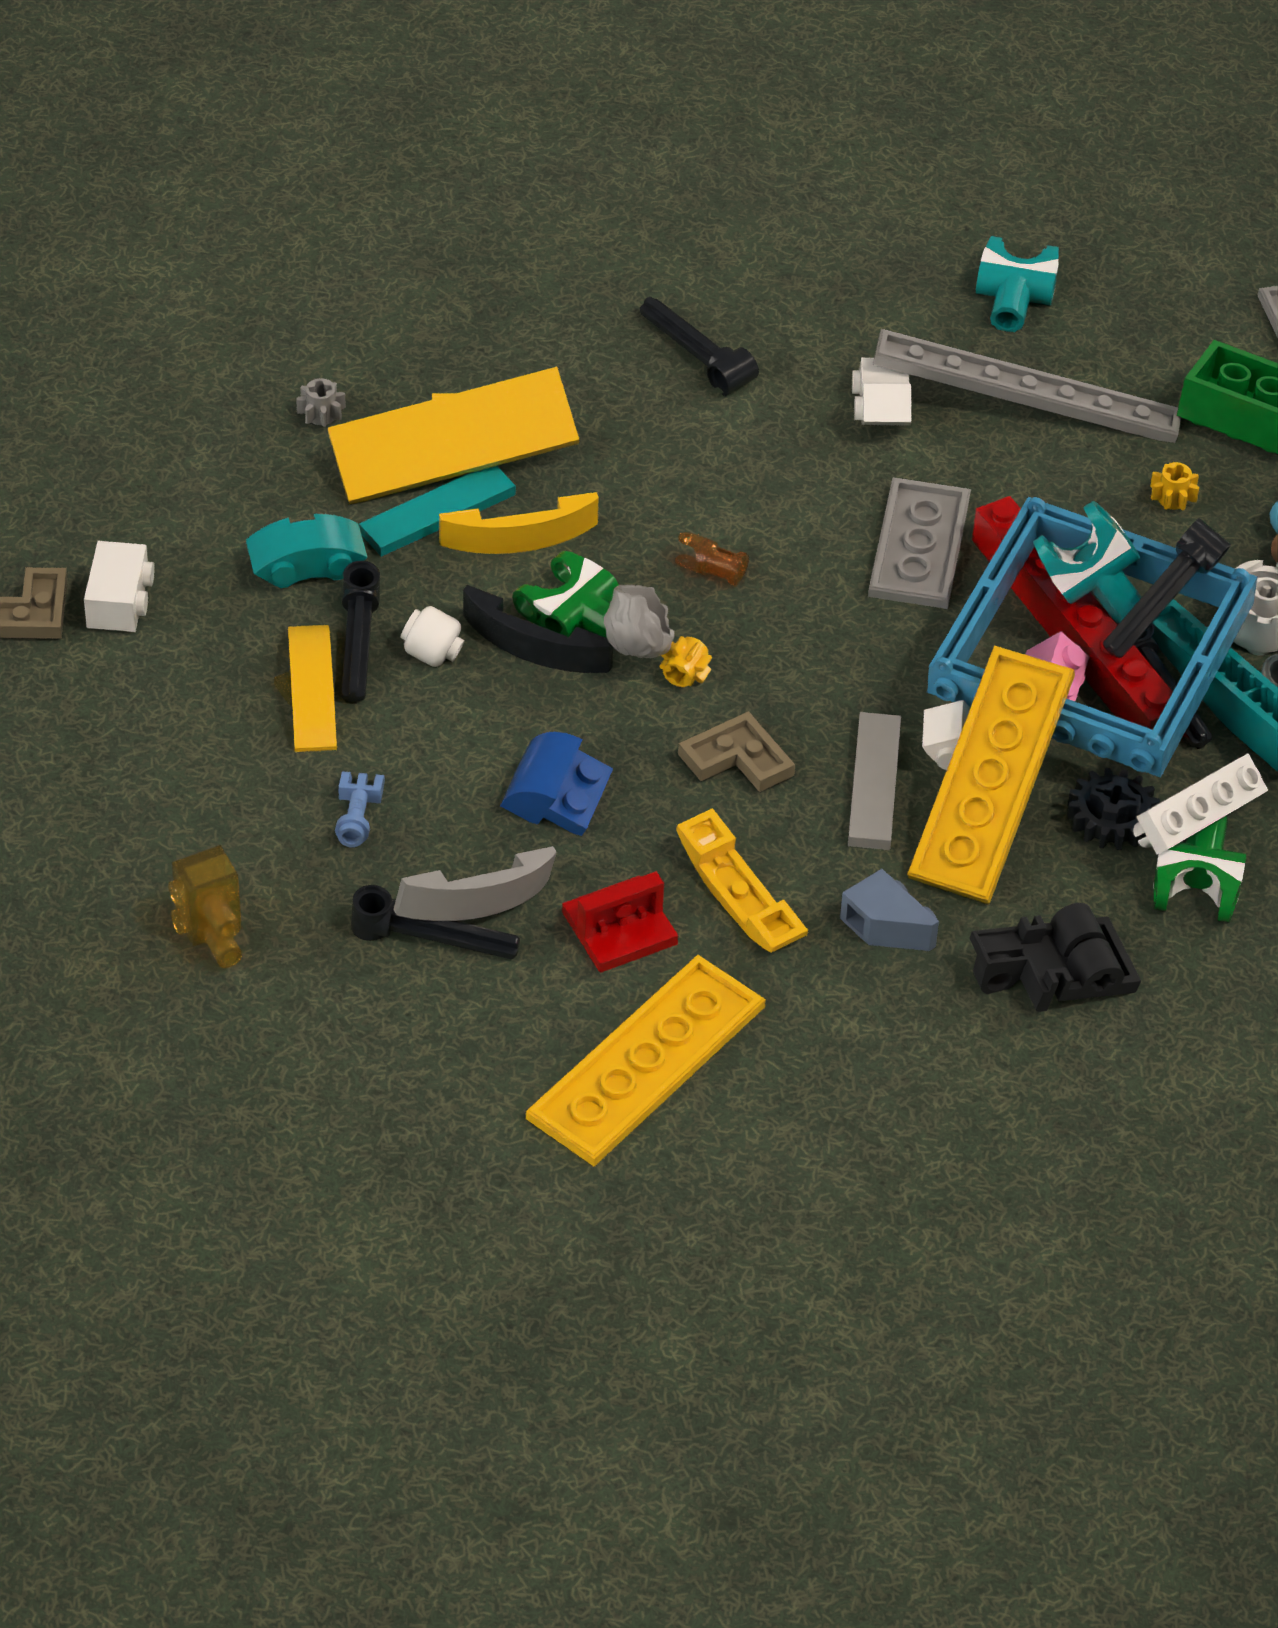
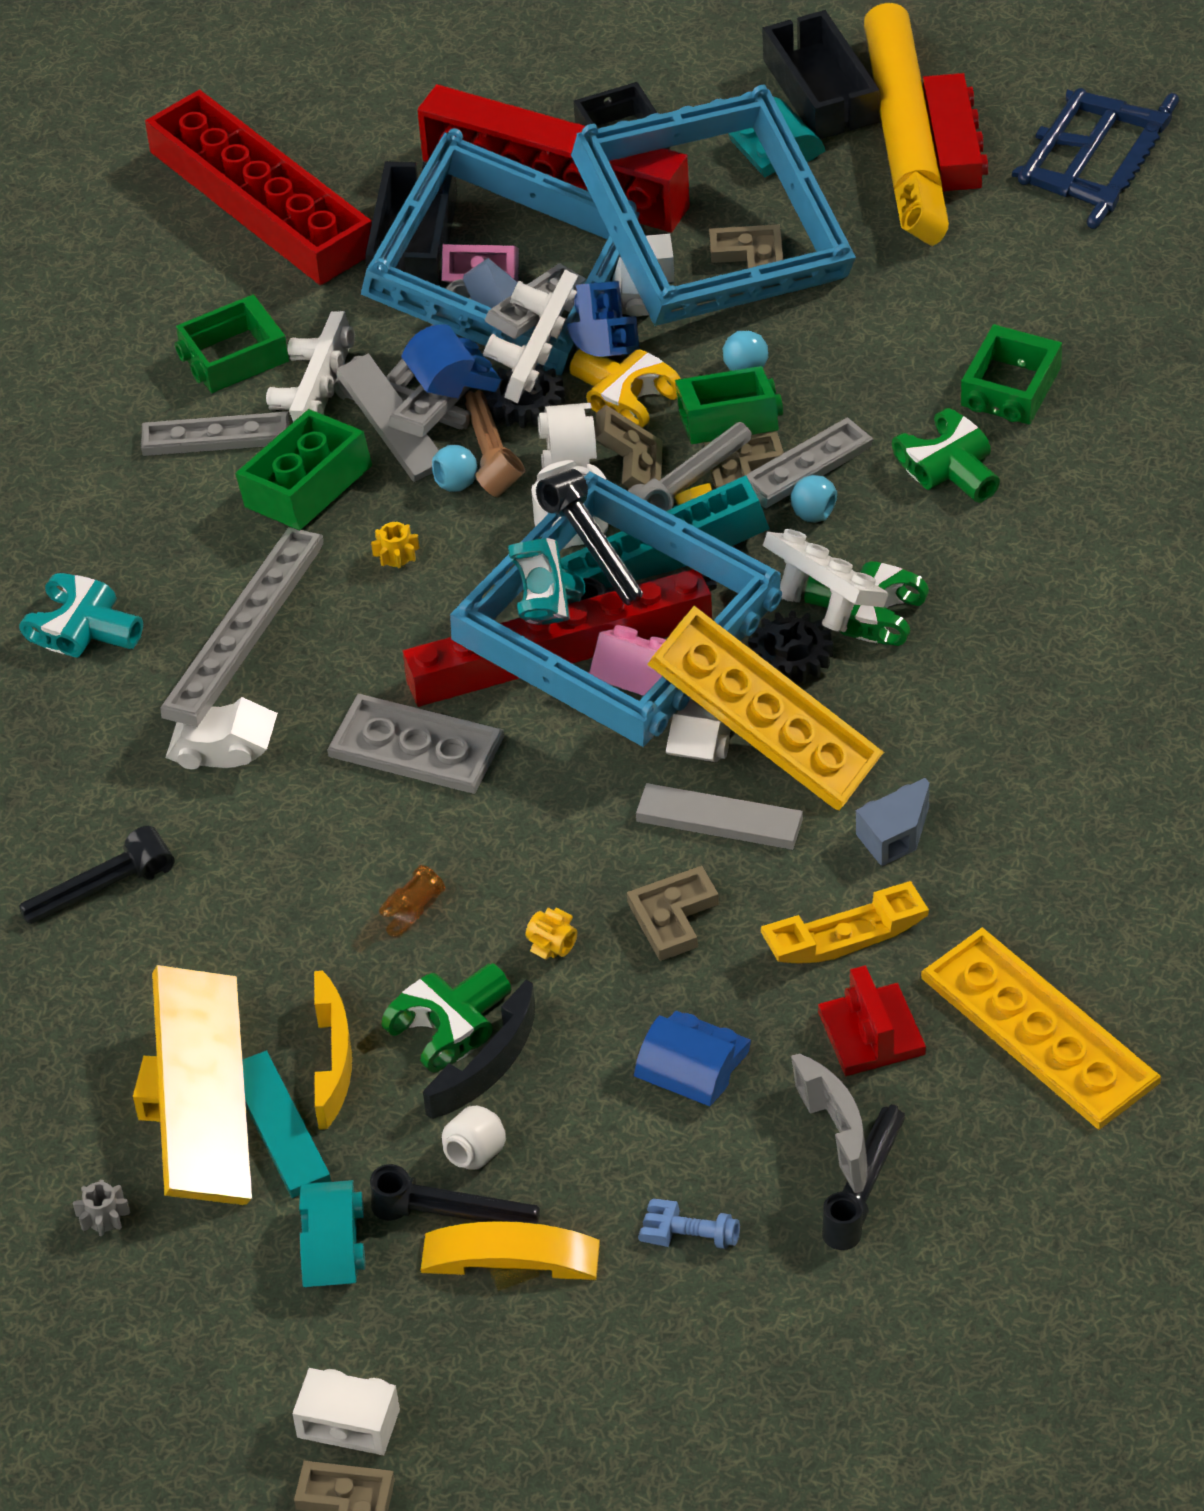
camera: 75 degrees left, 0 degrees up
(208, 903) = (830, 1347): clear yellow brick -> none
(638, 622) = (523, 951): light grey hair -> none
(1067, 957) = (969, 708): black plate -> none

